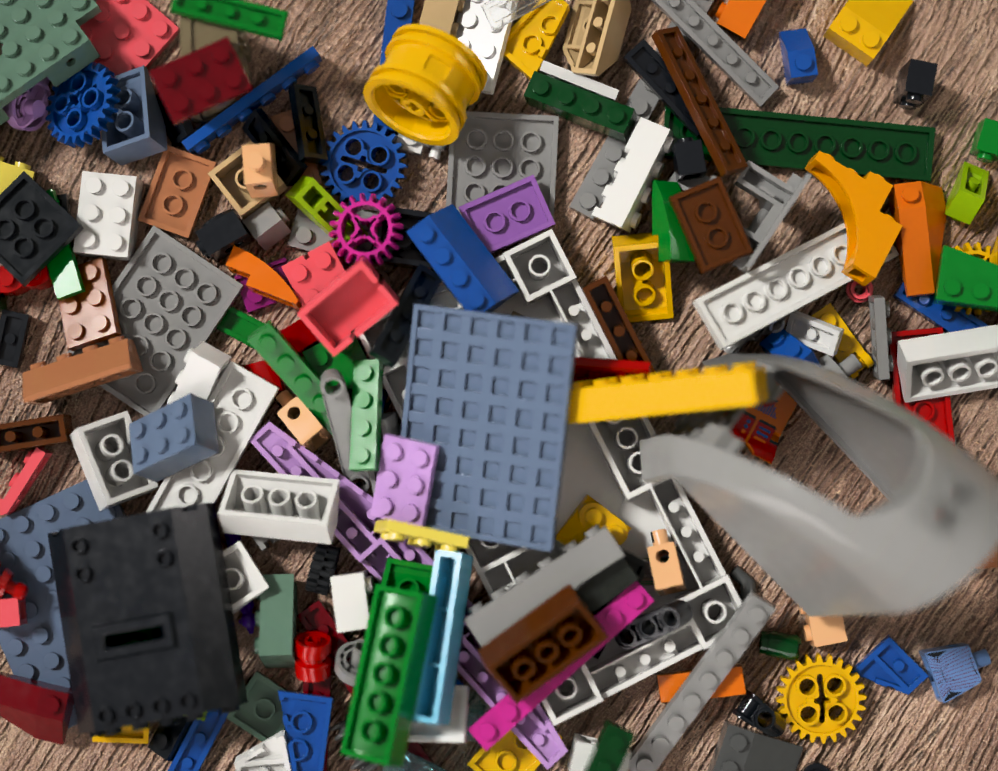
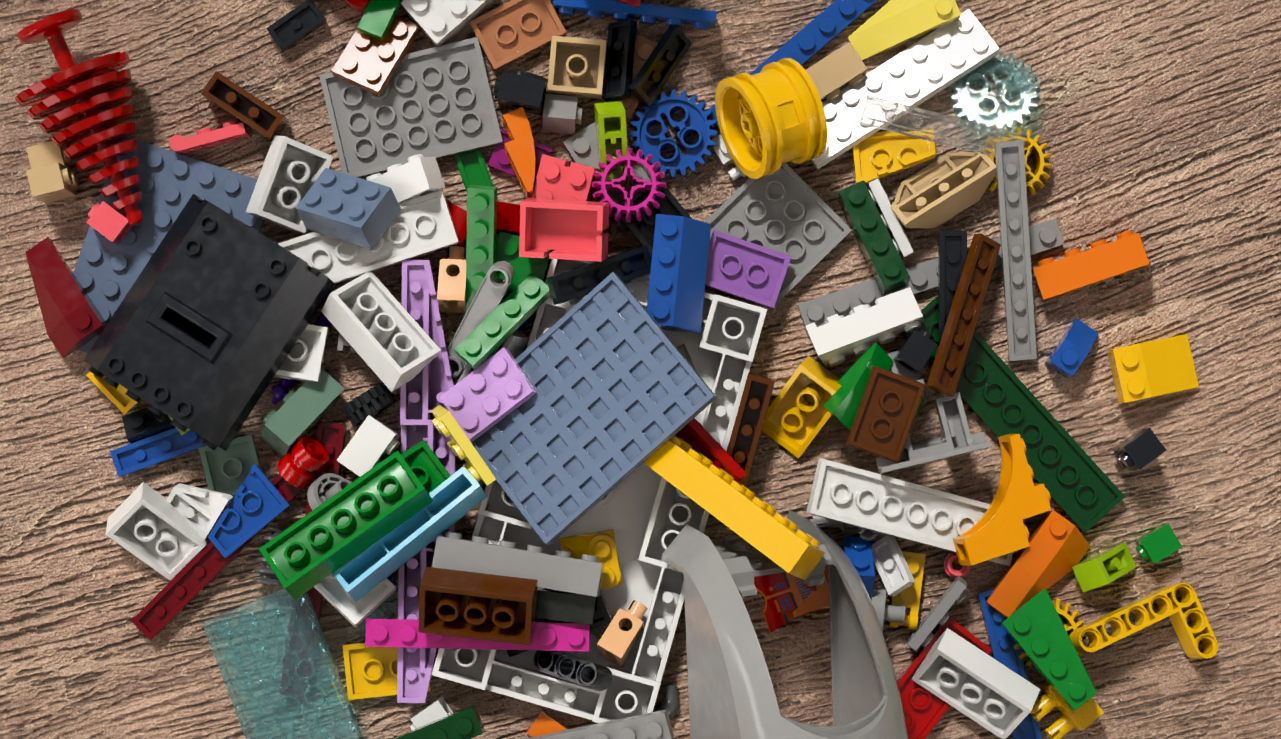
camera: 40 degrees right, 0 degrees up
(80, 372) = (325, 96): nougat slope -> none
(260, 169) = (592, 69): light nougat torso -> none

